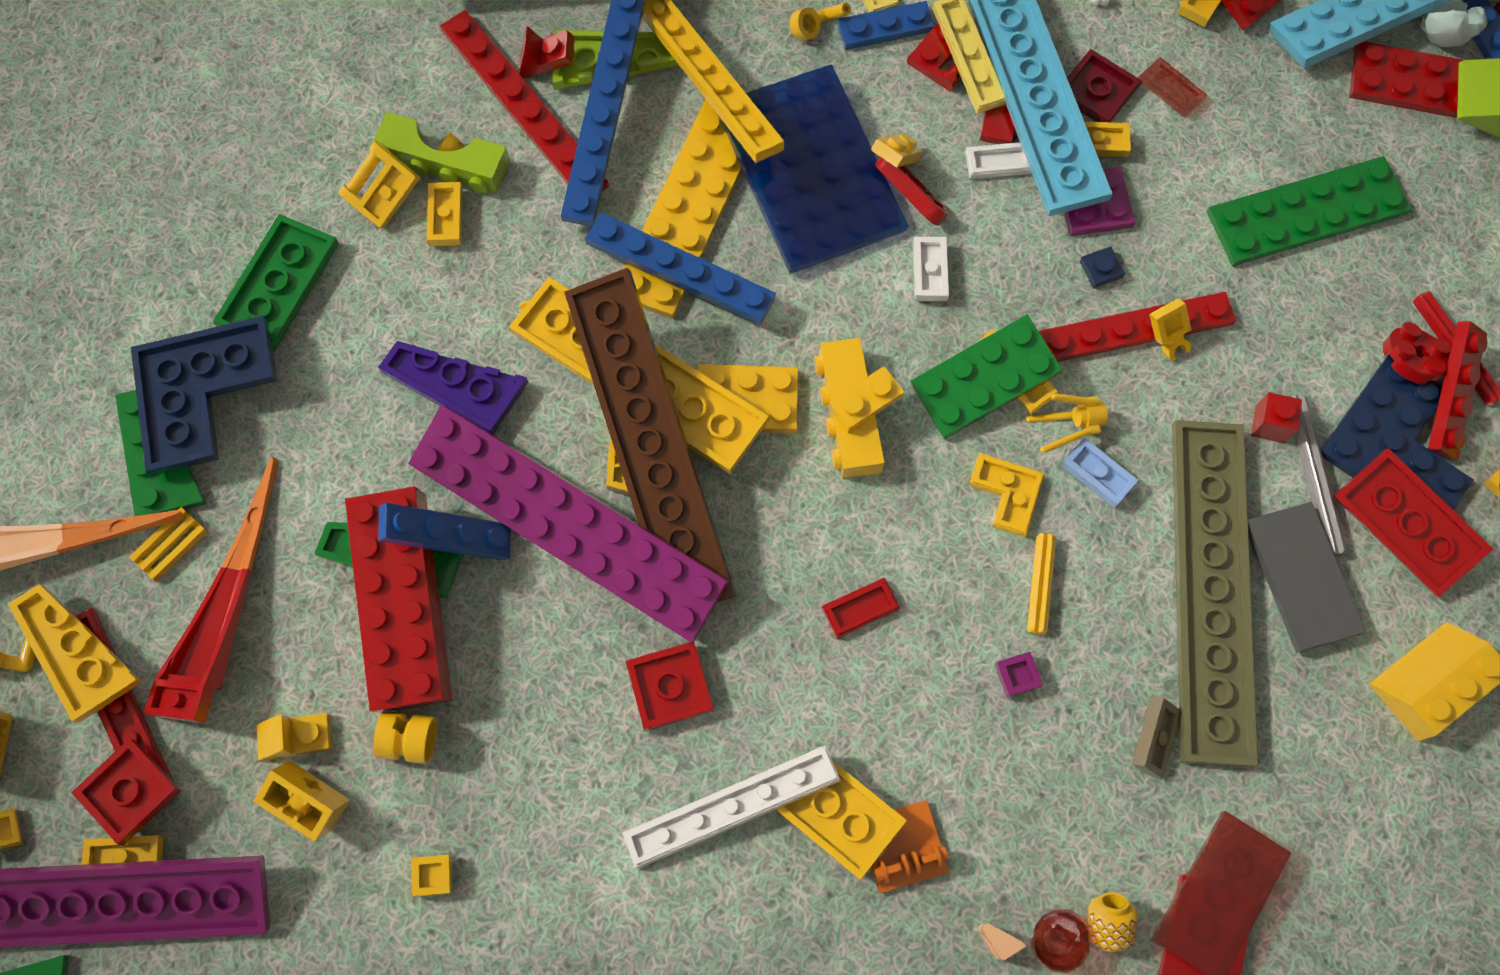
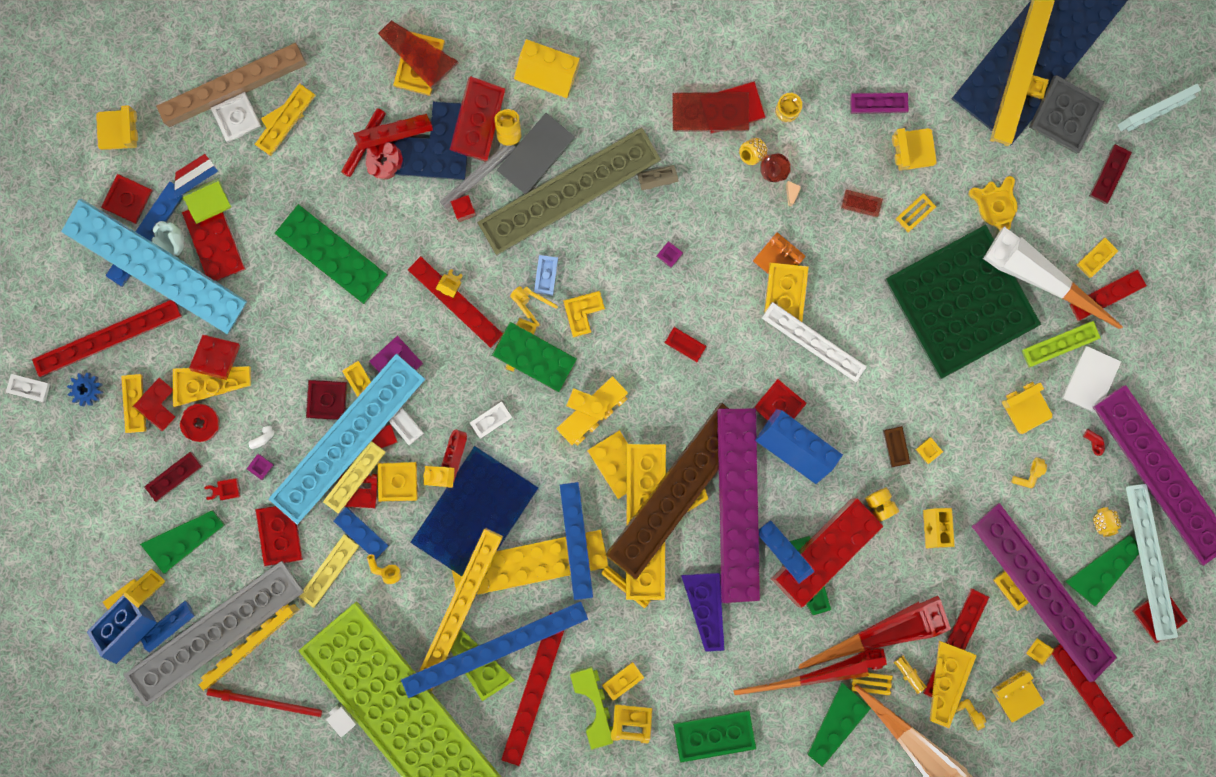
camera: 125 degrees left, 15 degrees up
(126, 792) = (987, 607): red plate -> none
(132, 606) = (910, 674): none -> yellow pin
(177, 384) = (797, 737): dark blue plate -> none
(210, 524) = (850, 668): none -> red plate
(293, 736) = (914, 556): yellow slope -> none
(450, 143) = (585, 707): yellow hinge -> none
(476, 828) = (896, 446): none -> reddish brown tile
(546, 53) = (501, 695): red slope -> none
(586, 669) = (798, 446): none -> blue slope
(925, 104) = (397, 481): none -> yellow plate
(1041, 584) = (618, 270): yellow axle -> none
(1102, 267) = (432, 337): dark blue plate -> none
(1172, 87) = (300, 362): clear red tile -> none
(1374, 556) = (508, 127): none -> yellow wheel

